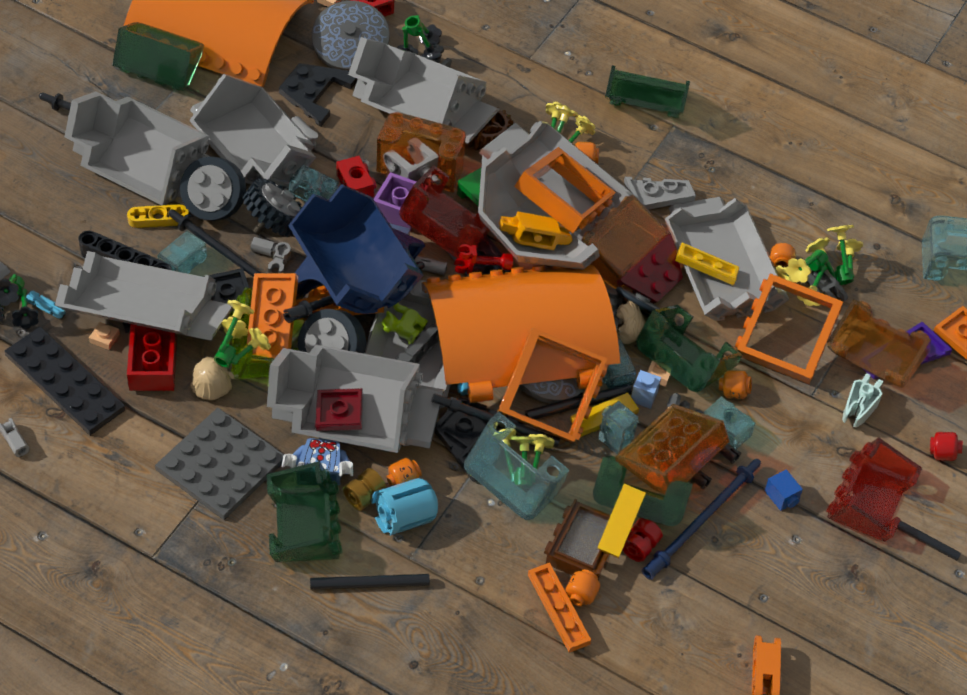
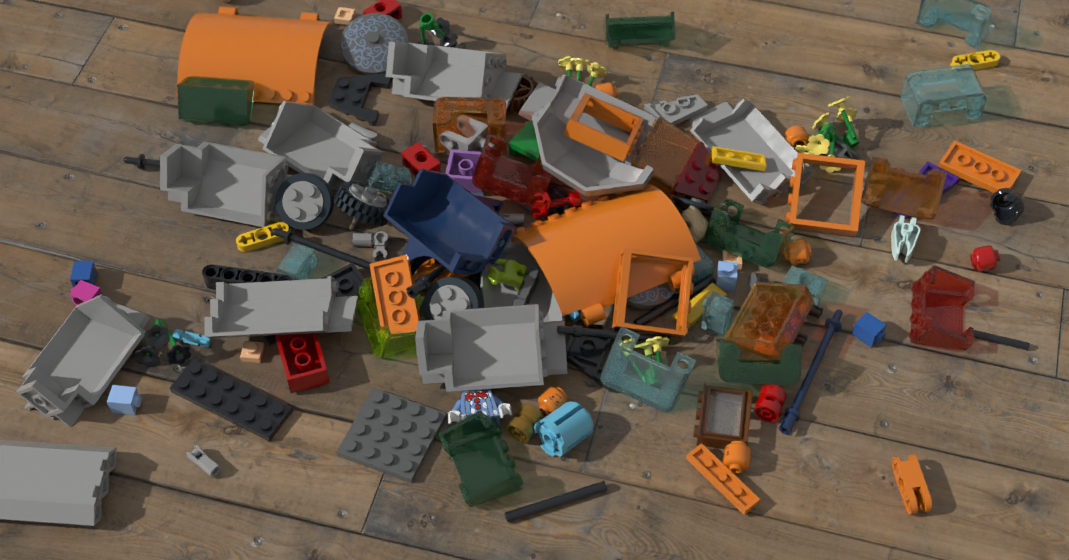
camera: 10 degrees left, 0 degrees up
(210, 380) = (359, 364): tan hair -> none
(234, 329) = (367, 316): plant -> none
(339, 409) = (481, 361): dark red tile -> none
(535, 230) = (592, 167): light orange hinge -> none
(621, 520) = (751, 391): yellow tile -> none

